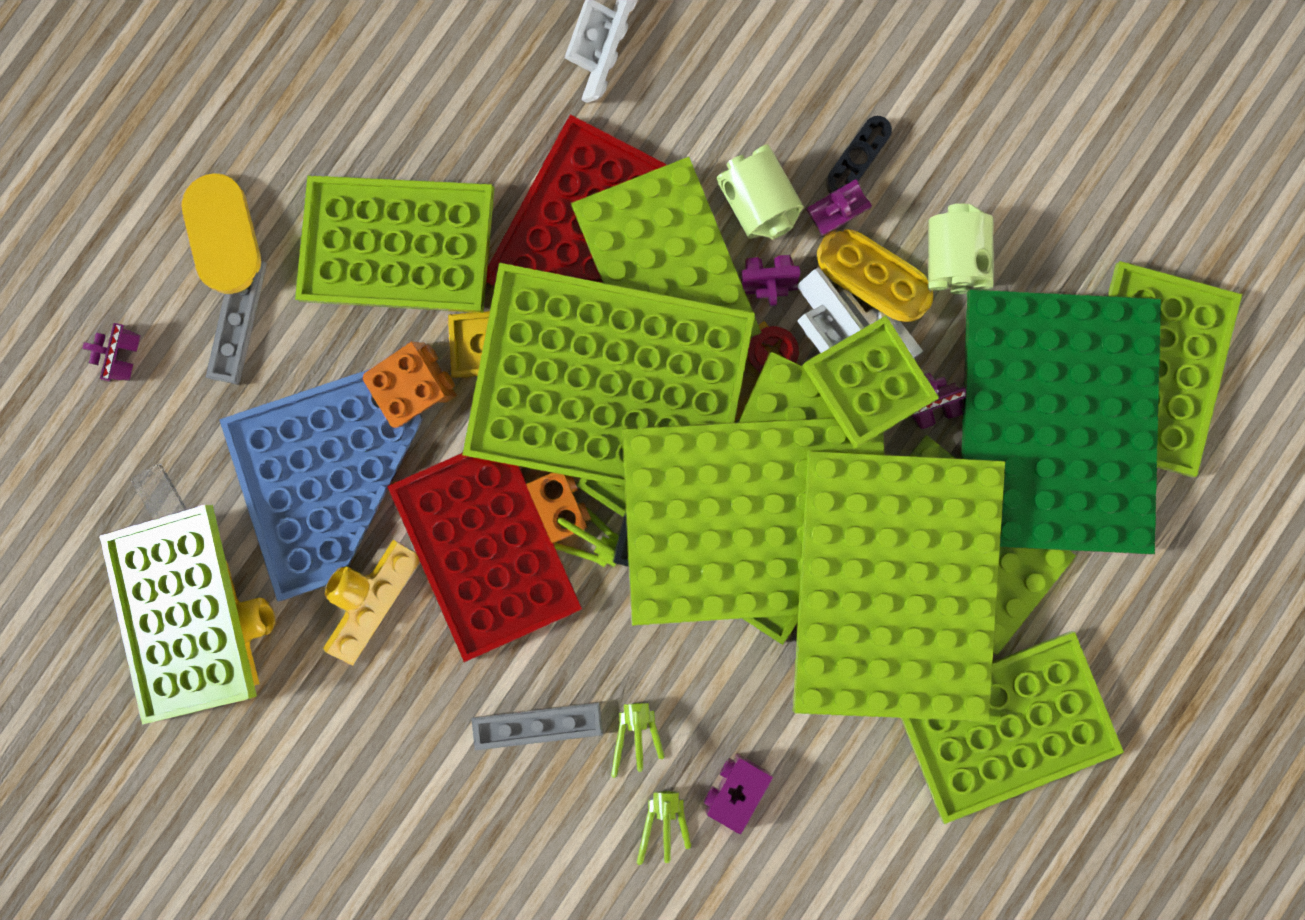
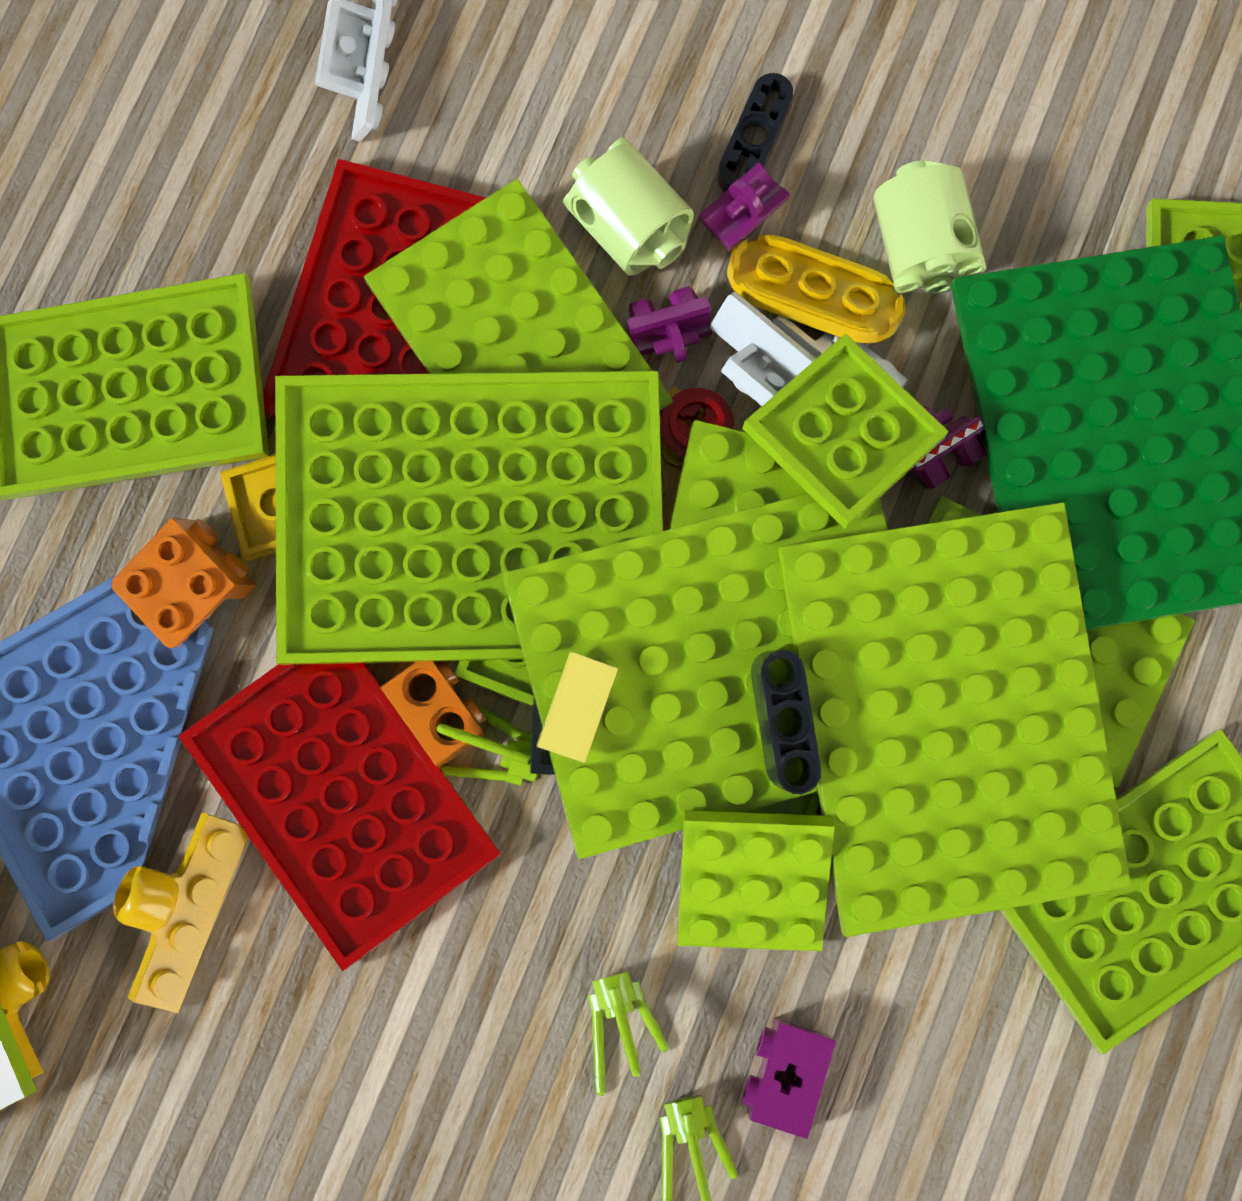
camera: 10 degrees left, 5 degrees down
(537, 726) = (470, 1043): light grey tile -> none
(652, 528) = (577, 707): none -> light yellow tile
(743, 663) = (754, 880): none -> lime plate
(794, 580) = (801, 740): none -> black beam

